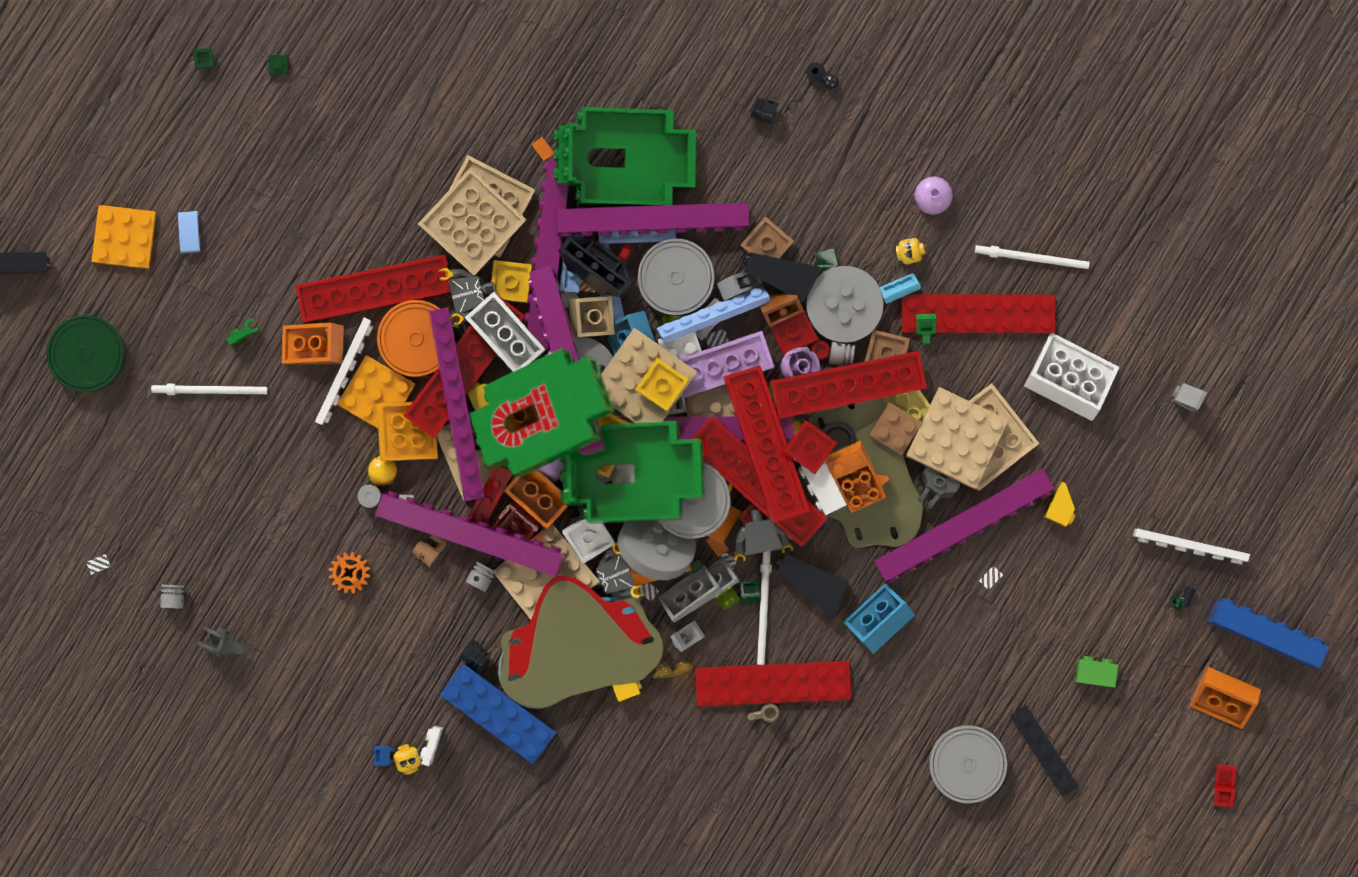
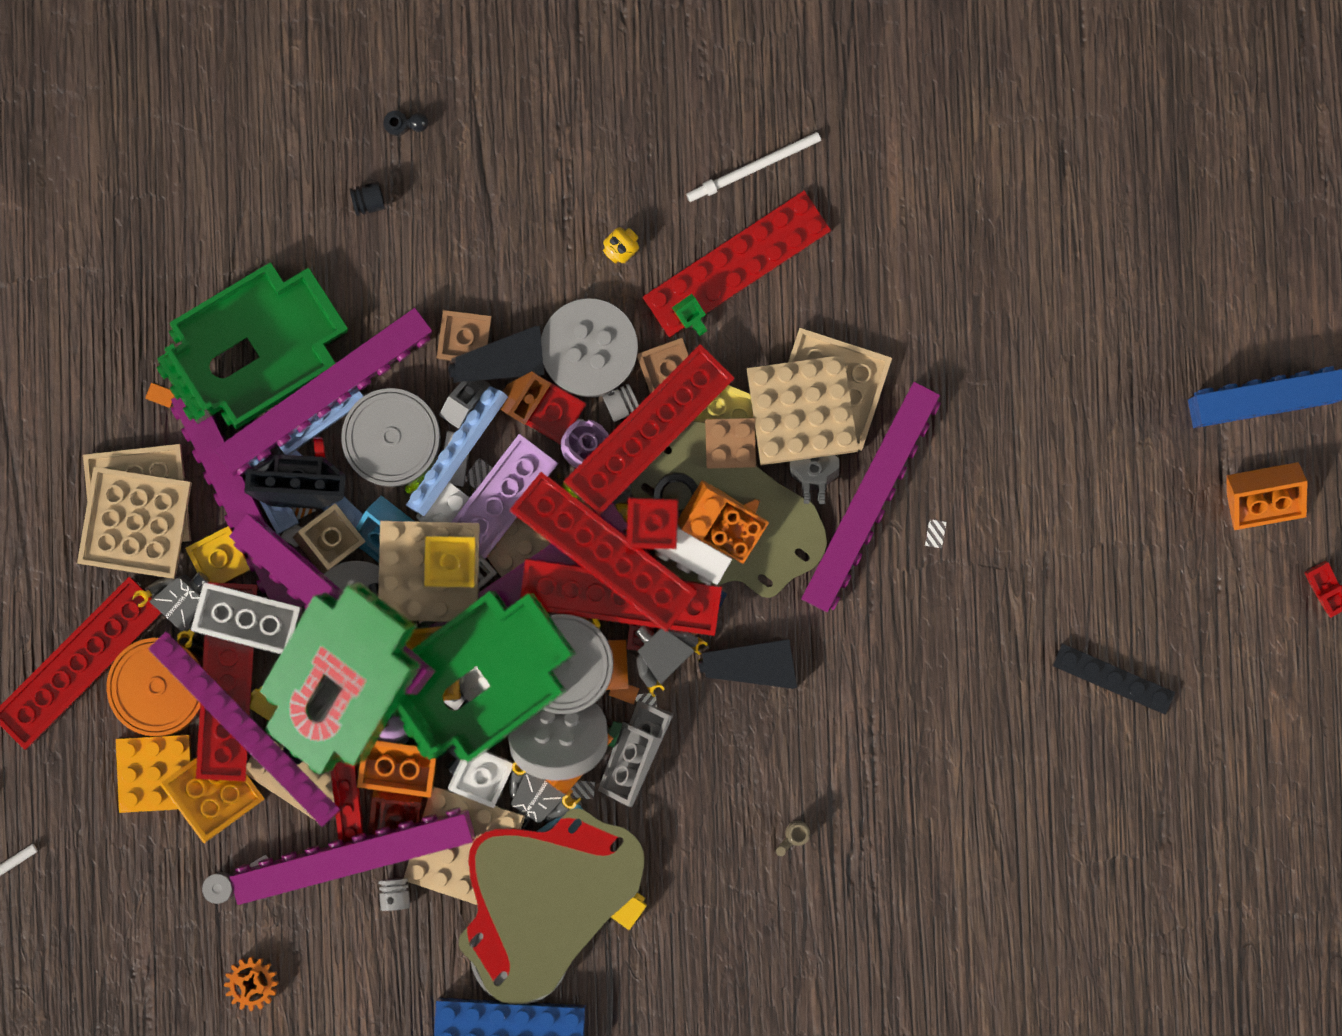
camera: 30 degrees left, 0 degrees up
(312, 344) = (51, 765): orange slope -> none
(341, 379) = (105, 782): white plate -> none
(382, 472) = (216, 853): yellow hair -> none
(427, 553) = (321, 907): medium nougat piece -> none
(475, 655) = (443, 982): black piece -> none
(521, 419) = (323, 699): none -> white slope
(666, 672) = (660, 863): clear yellow slope -> none
(687, 636) = (656, 811): light grey bracket -> none
(728, 599) = (673, 742): clear neon green slope -> none
(749, 592) = (691, 719): dark green slope -> none
(766, 569) = (692, 683): white bar -> none
(773, 683) = (780, 800): red plate -> none
(821, 349) = (596, 411): red tile -> none
(826, 259) = (538, 313): slope -> none
(879, 618) = (847, 655): dark azure slope -> none
(900, 288) = (636, 291): medium azure plate -> none
(933, 195) = (606, 170): lavender cylinder -> none
(968, 764) = (1043, 747): light grey brick -> none
(1061, 507) = (960, 409): yellow slope -> none
(1071, 376) = (879, 265): white slope -> none
(1096, 673) = (1113, 560): bright green piece -> none
(1183, 544) = (1133, 357): white plate -> none
(1184, 600) = (1154, 422): arm -> none
(1188, 397) = (1017, 204): light grey slope -> none

